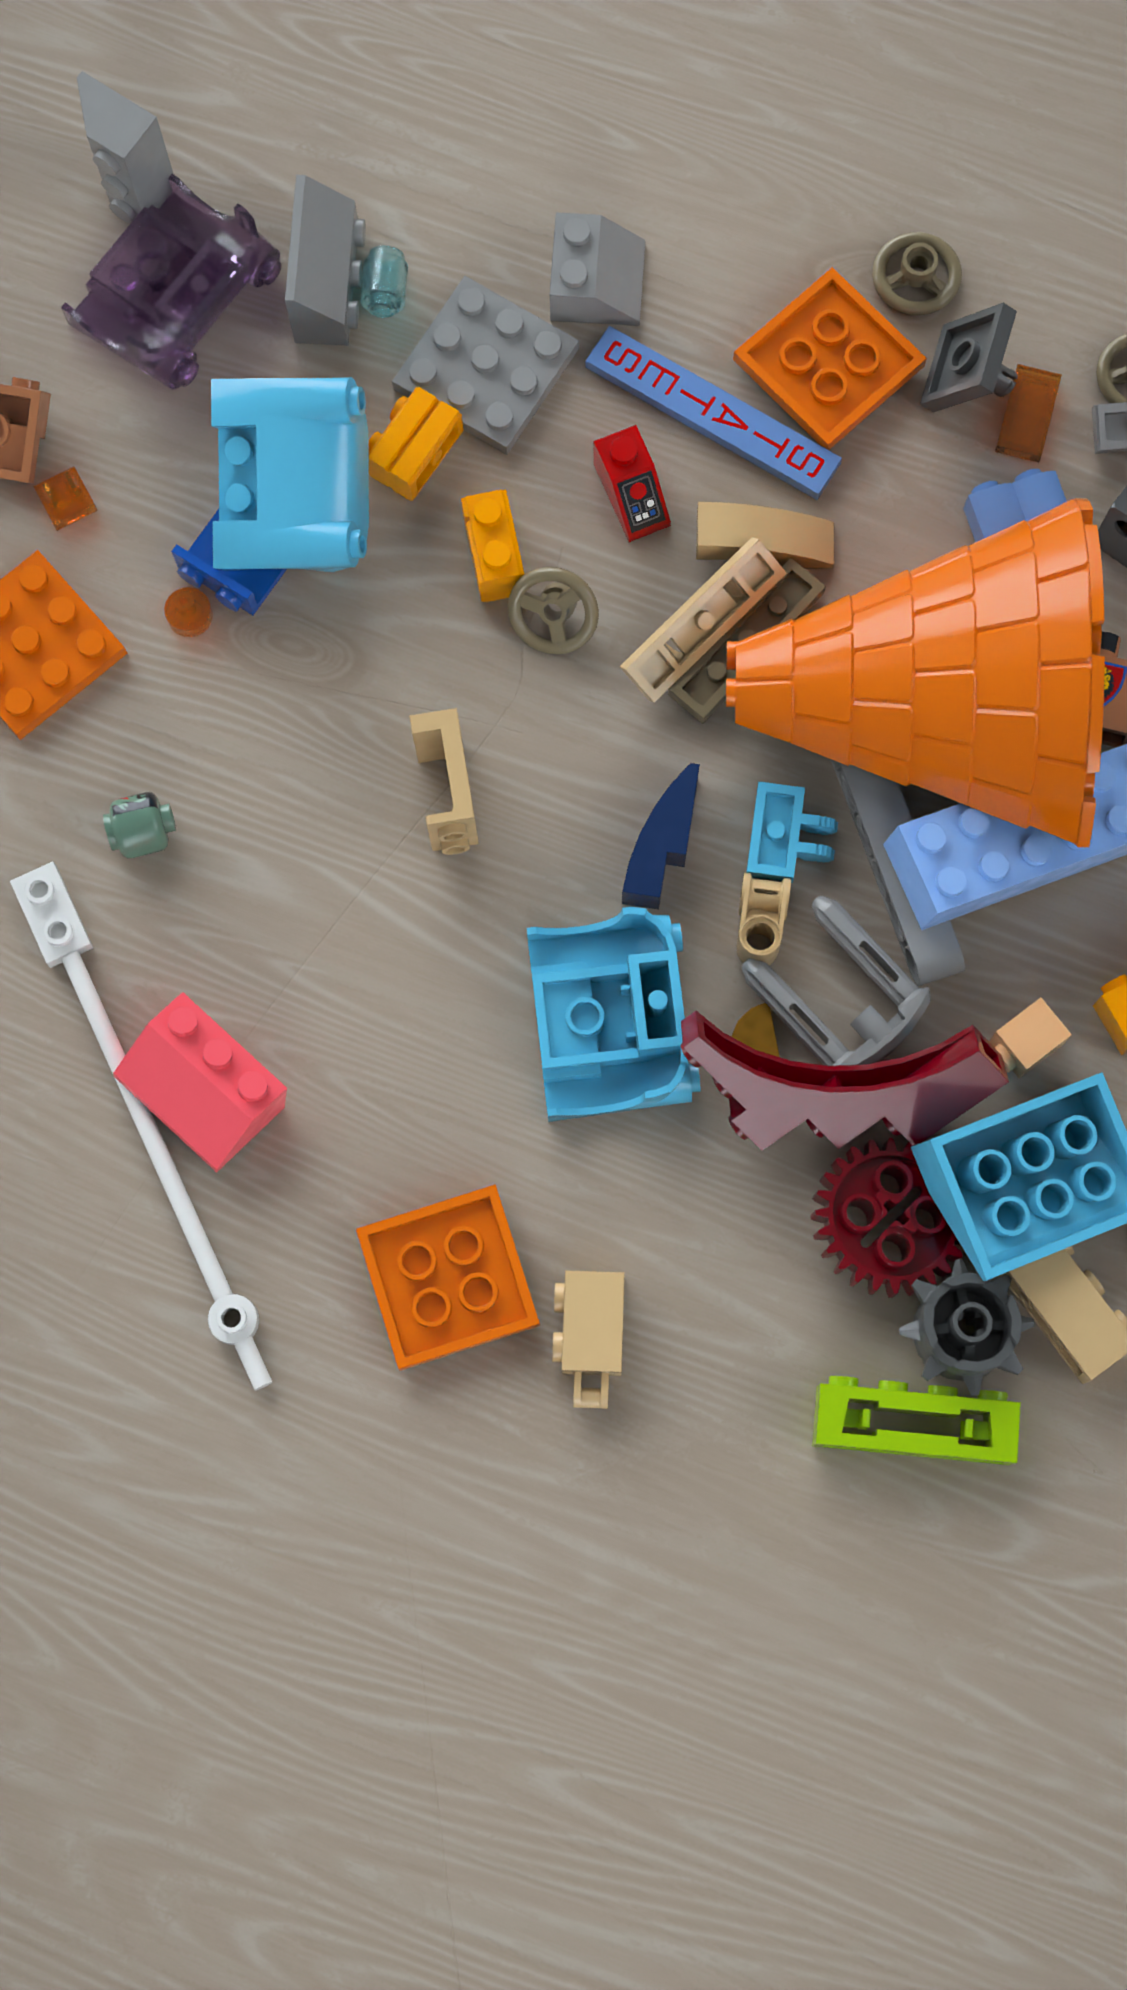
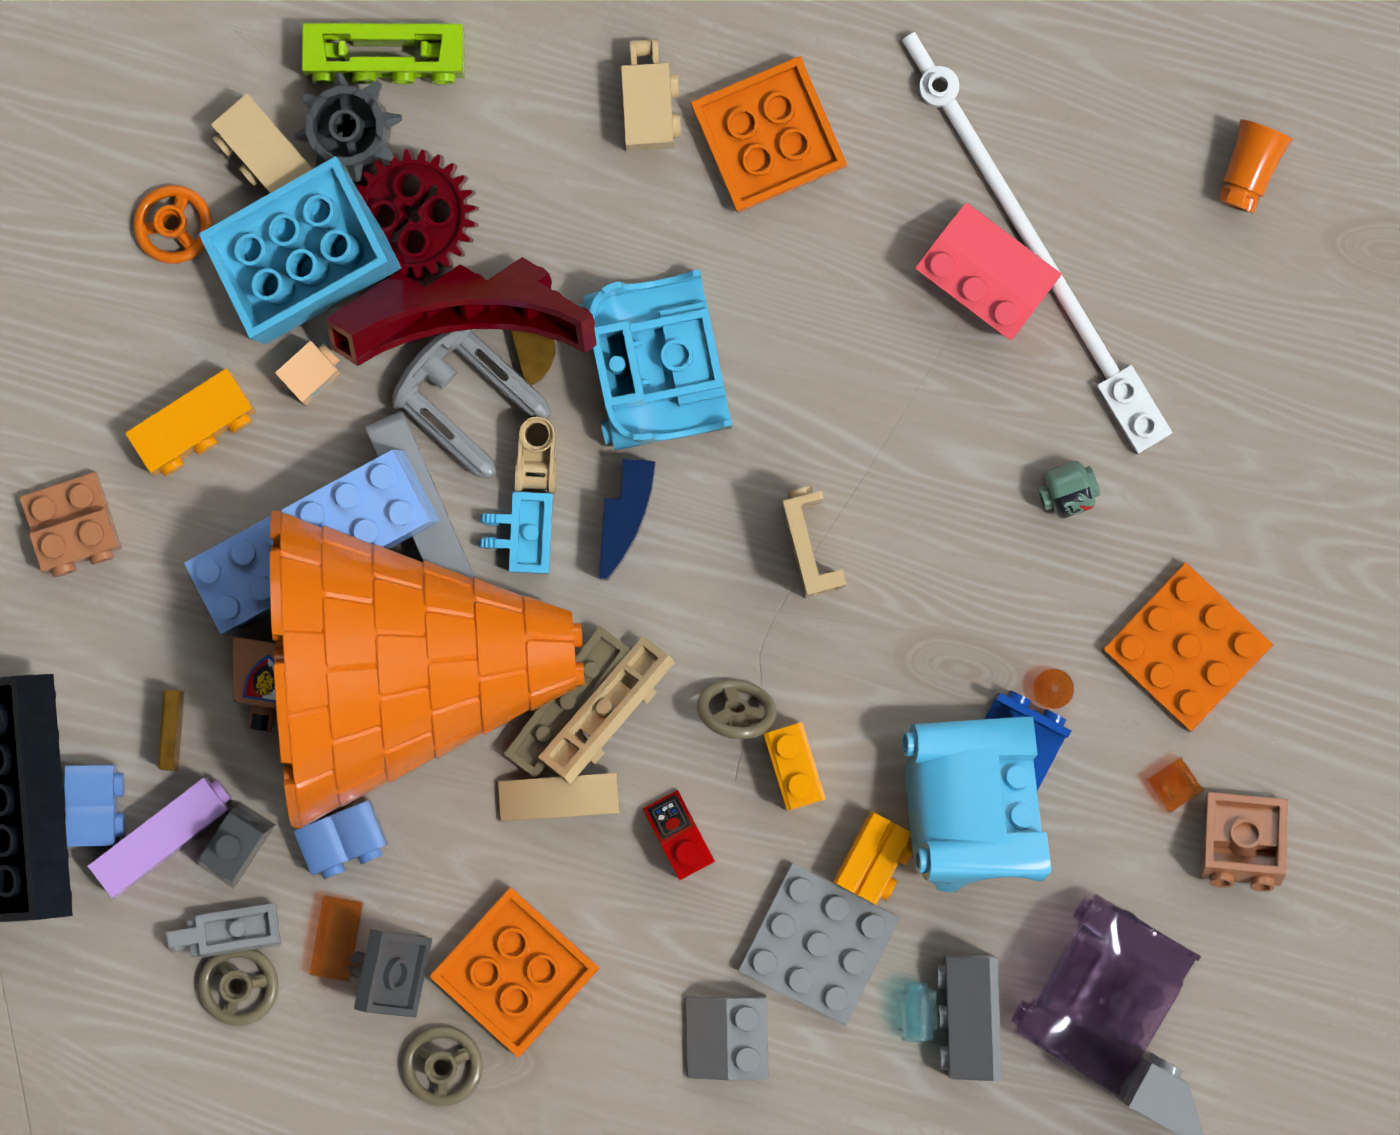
camera: 175 degrees right, 10 degrees up
(713, 412) = (614, 915): medium blue tile -> none

